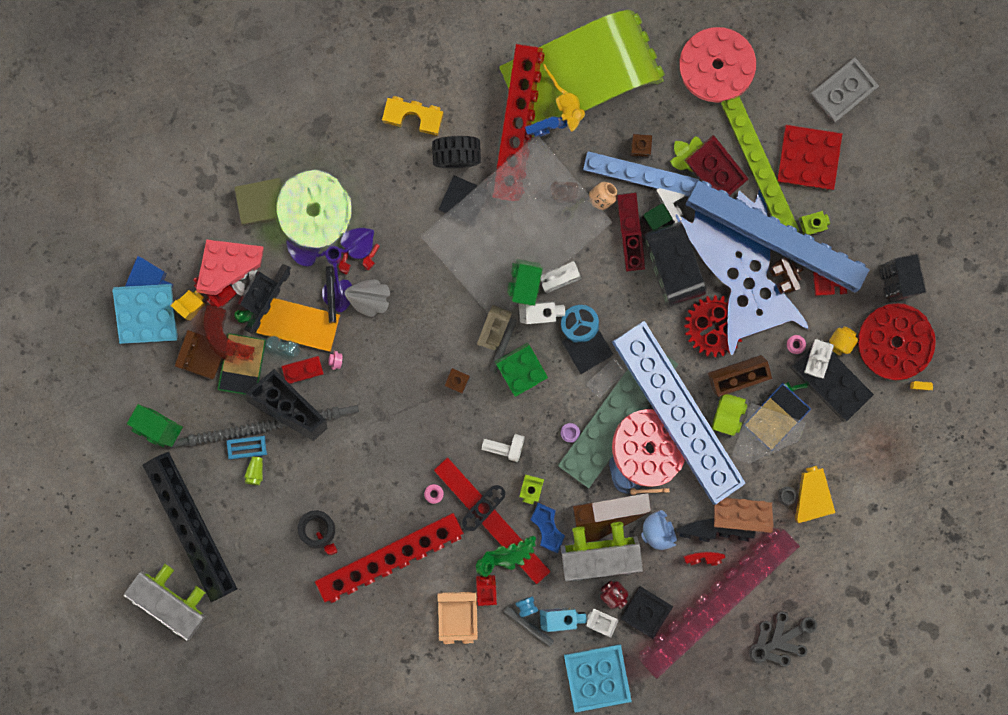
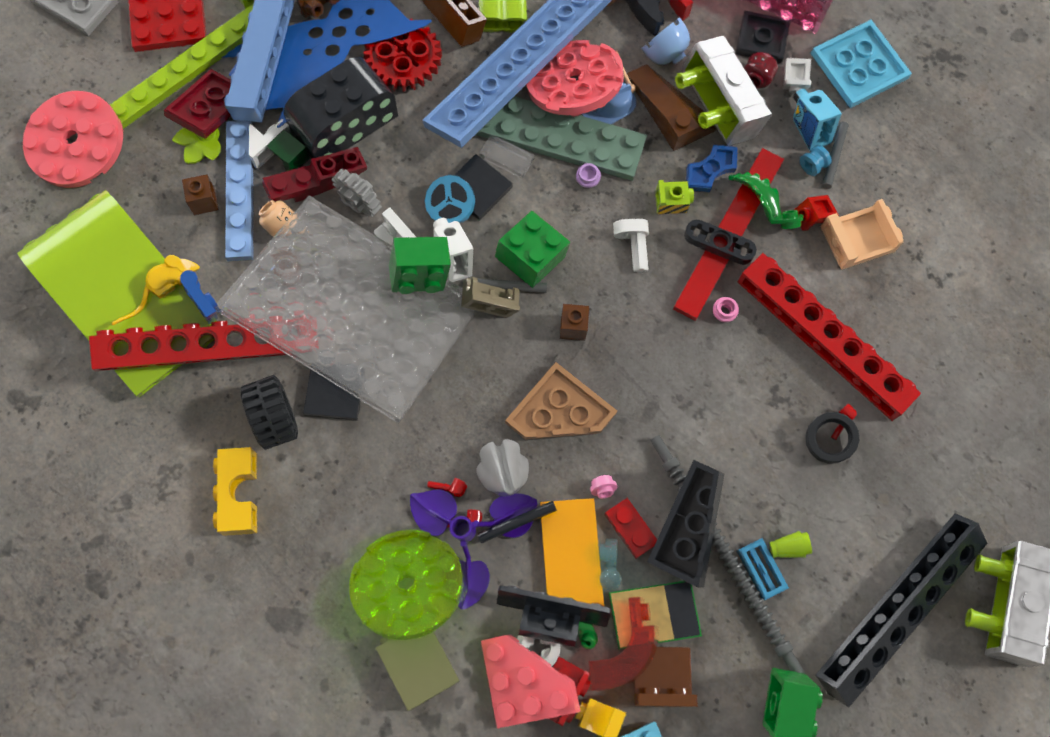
camera: 115 degrees left, 15 degrees down
(399, 350) = (560, 408): none -> medium nougat plate
(603, 256) = (356, 193): none -> light grey gear

